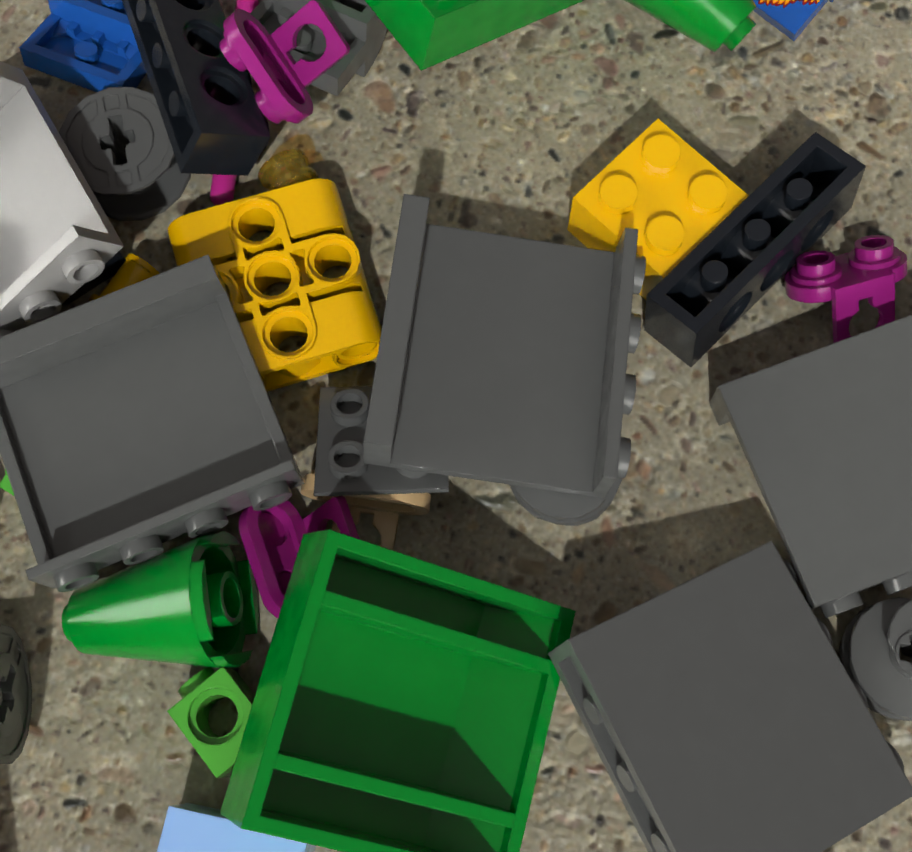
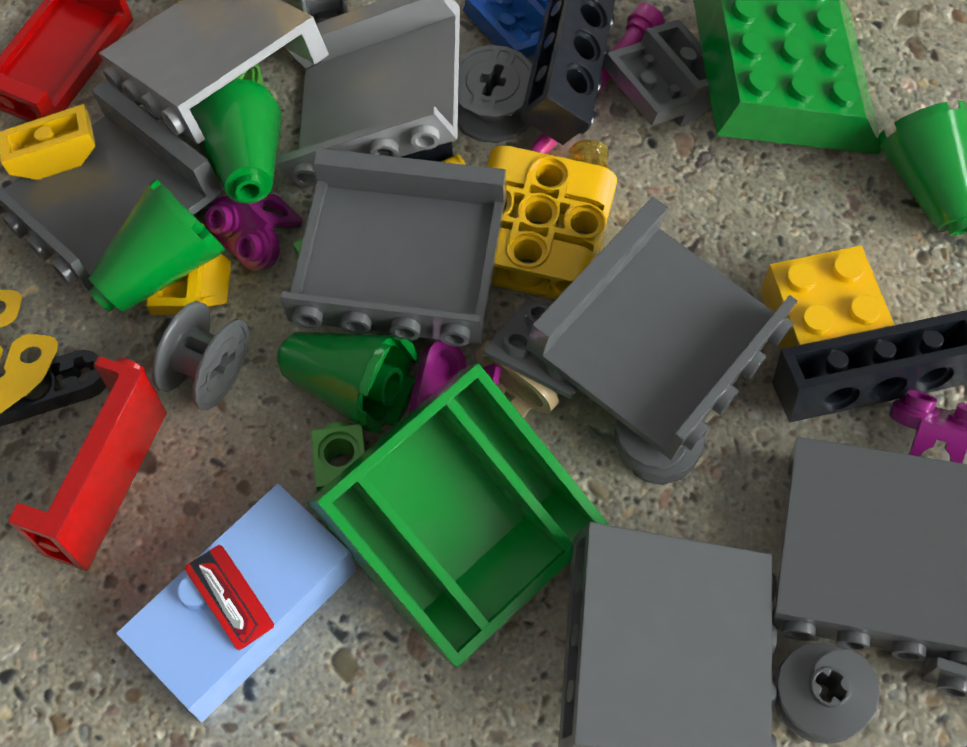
camera: 30 degrees right, 10 degrees down
(269, 59) = (619, 82): magenta bracket -> none

